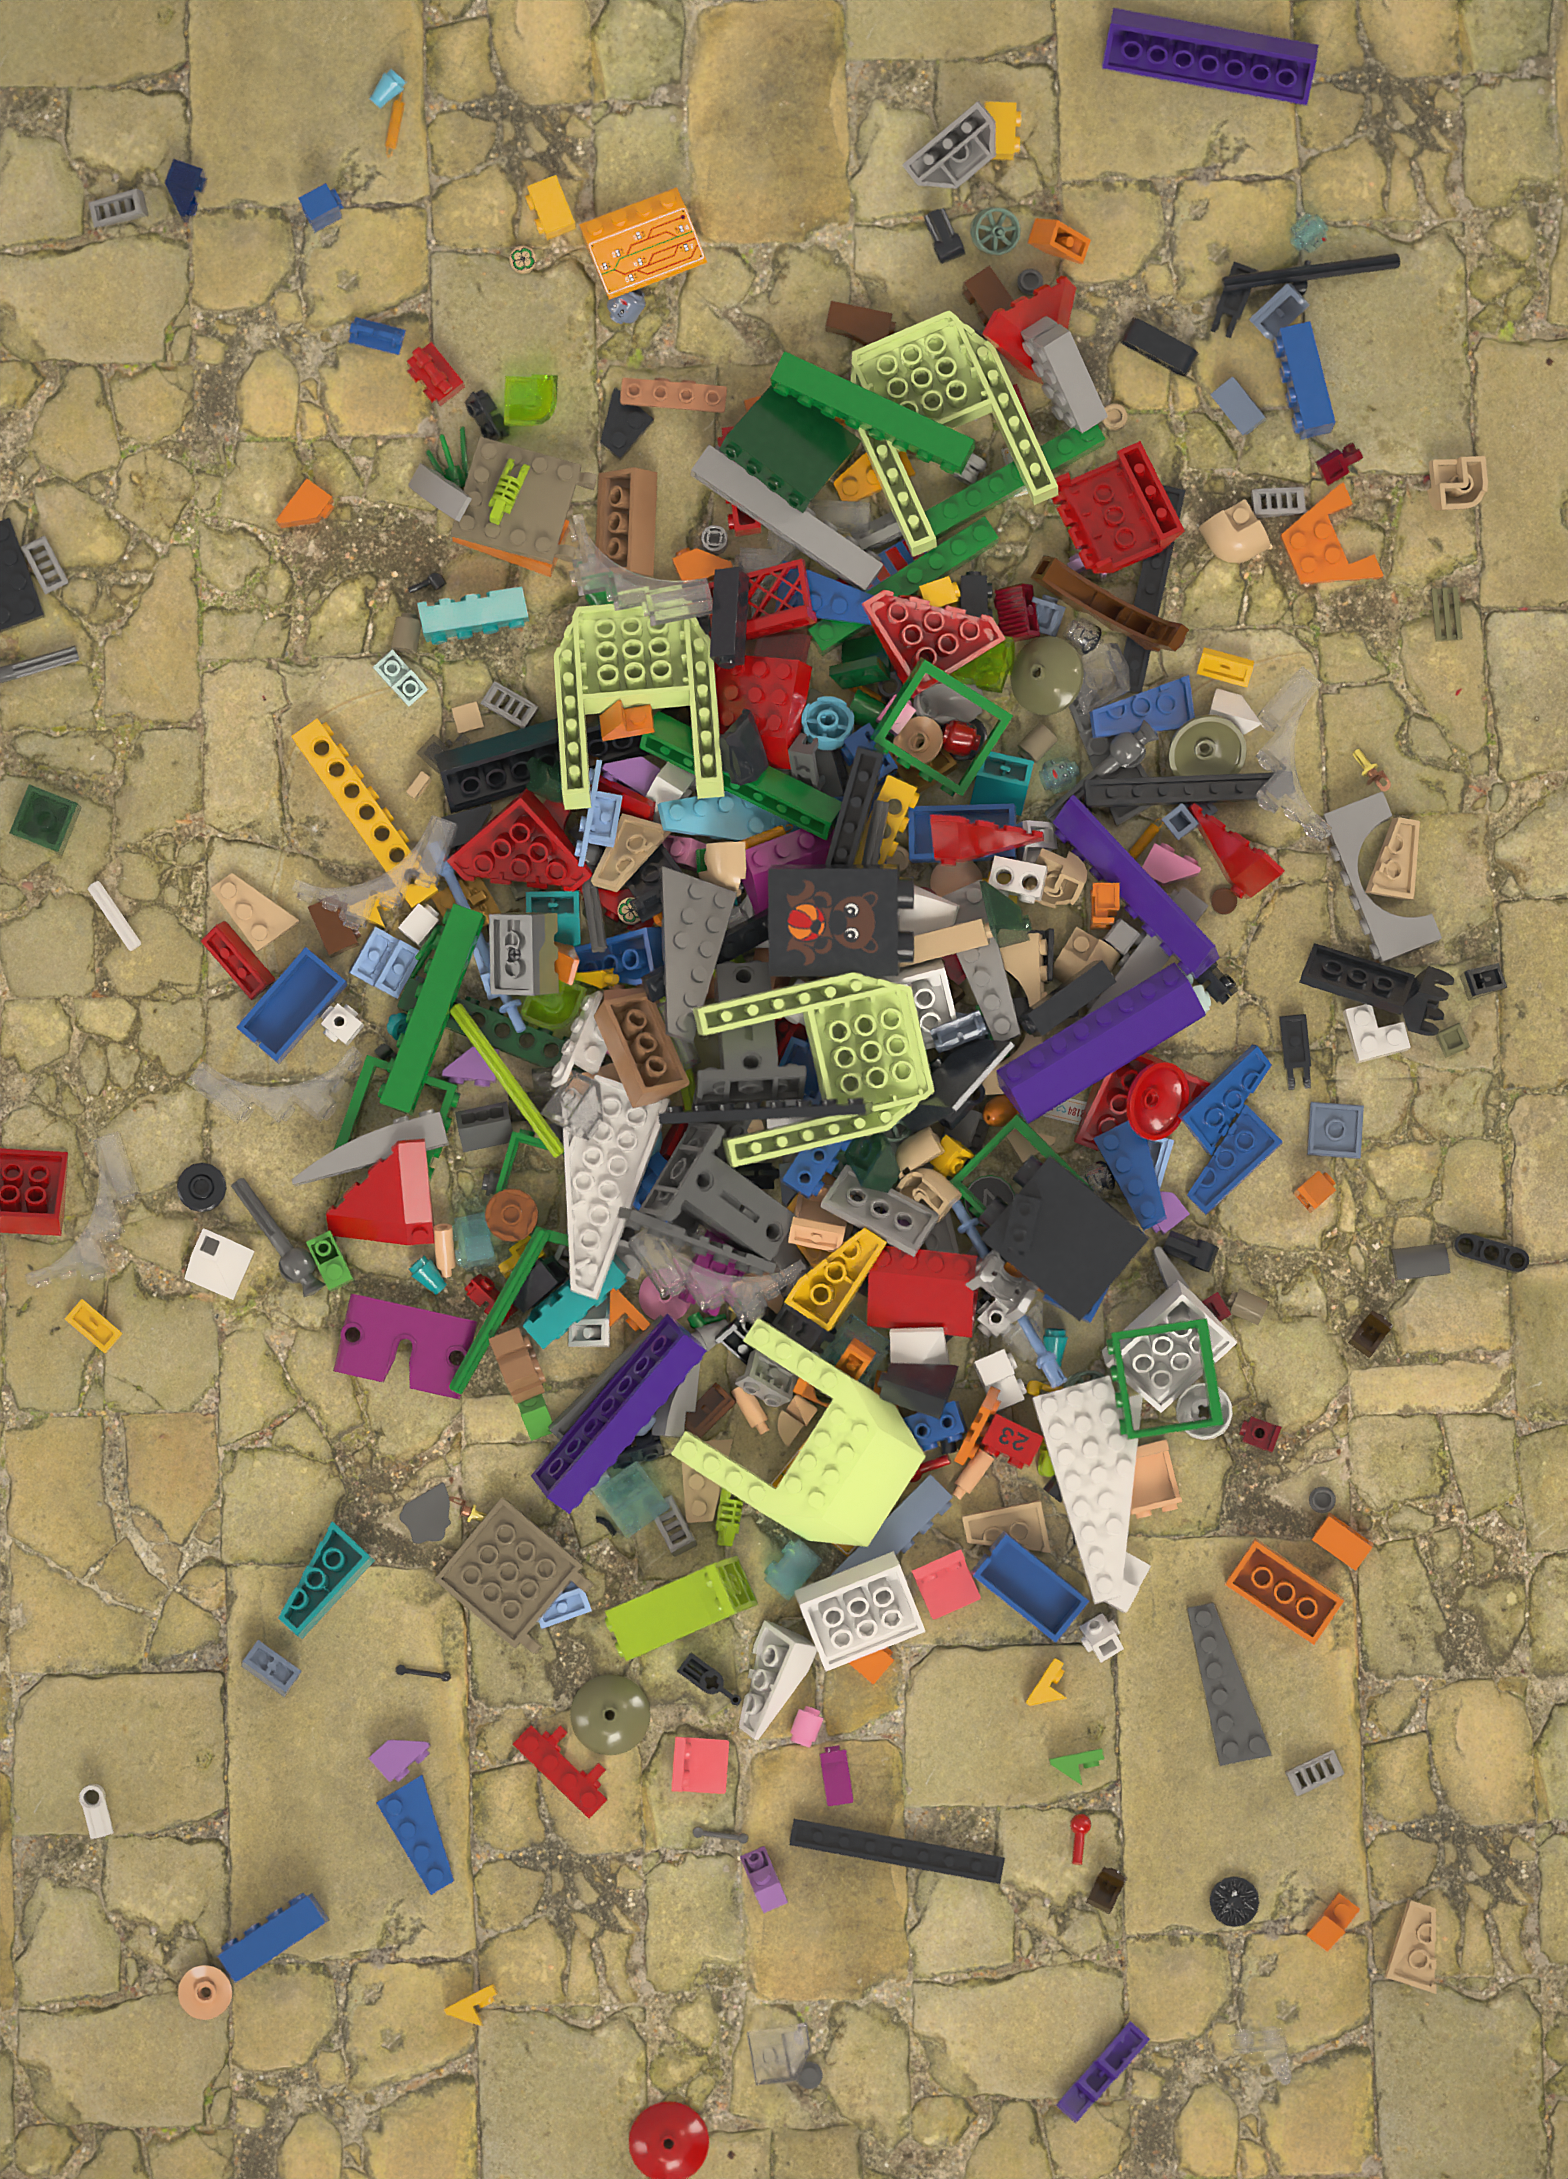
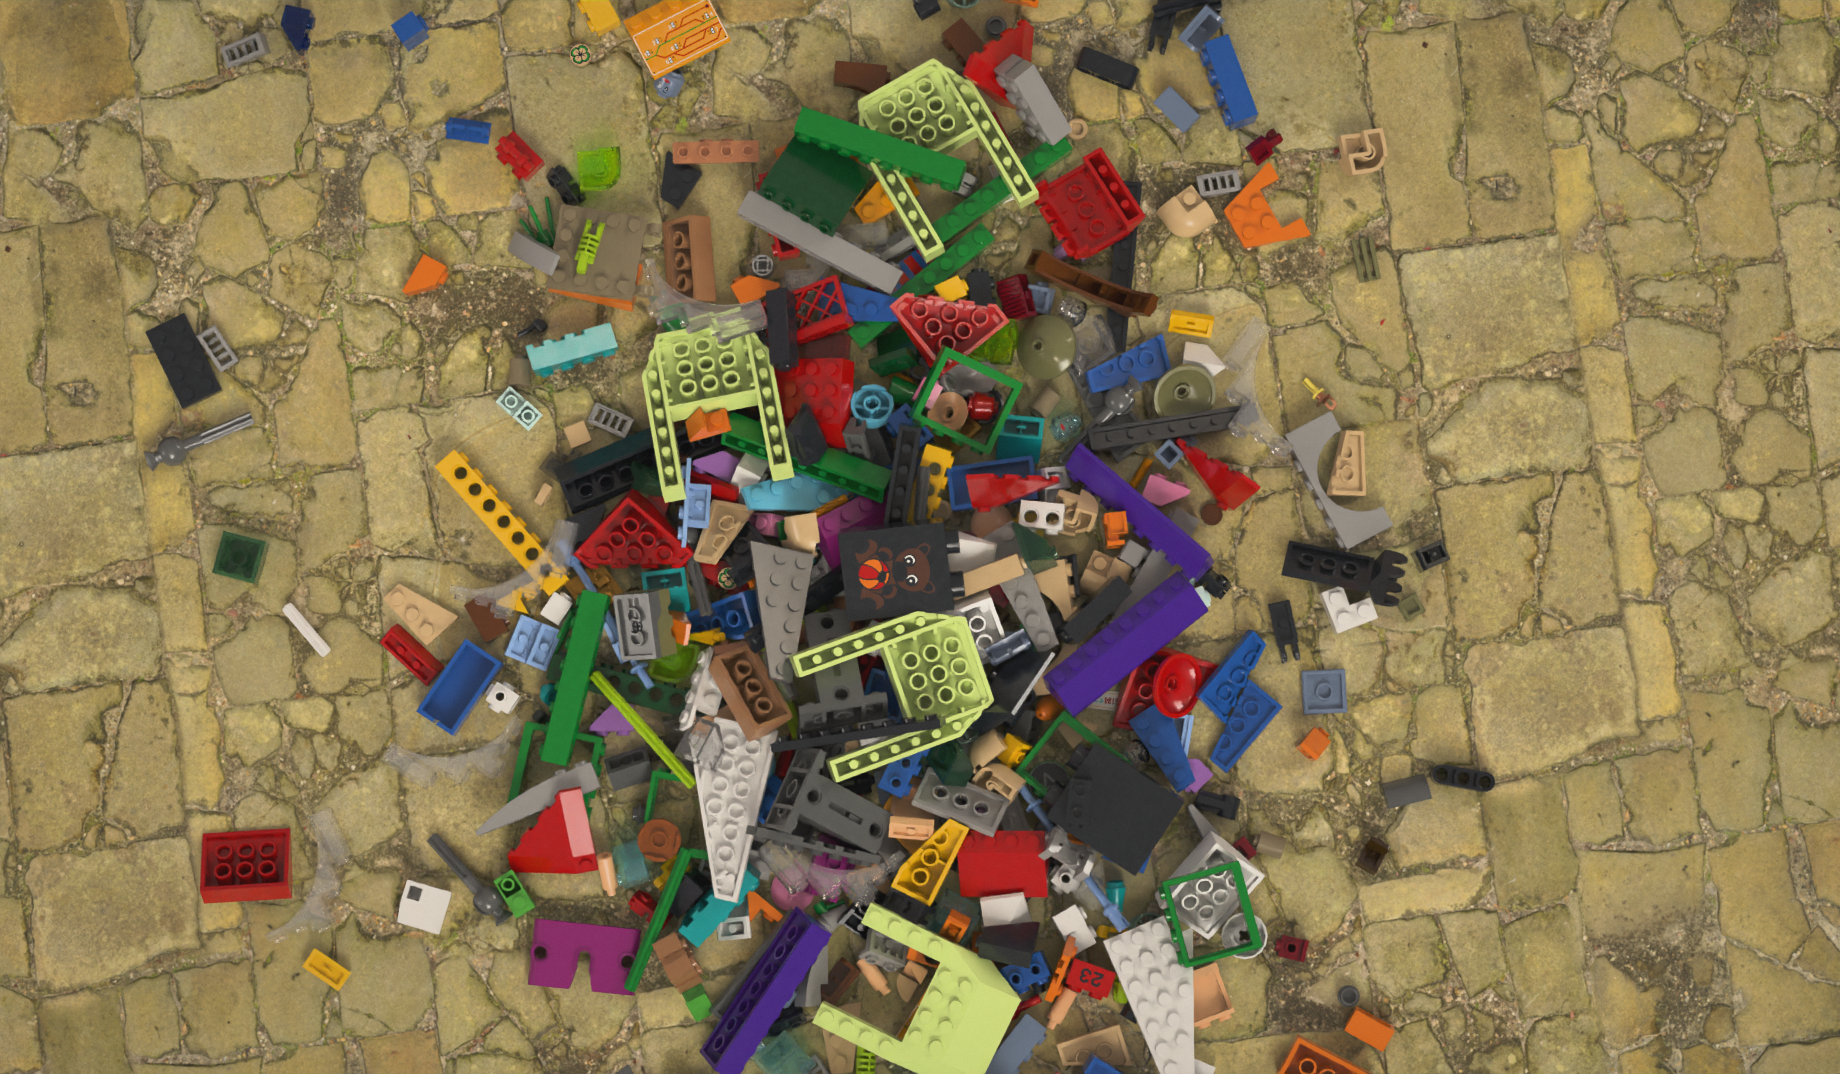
camera: 10 degrees left, 0 degrees up
(201, 1187) = (402, 844): black wheel -> none
(427, 1274) = (596, 895): teal cone -> none

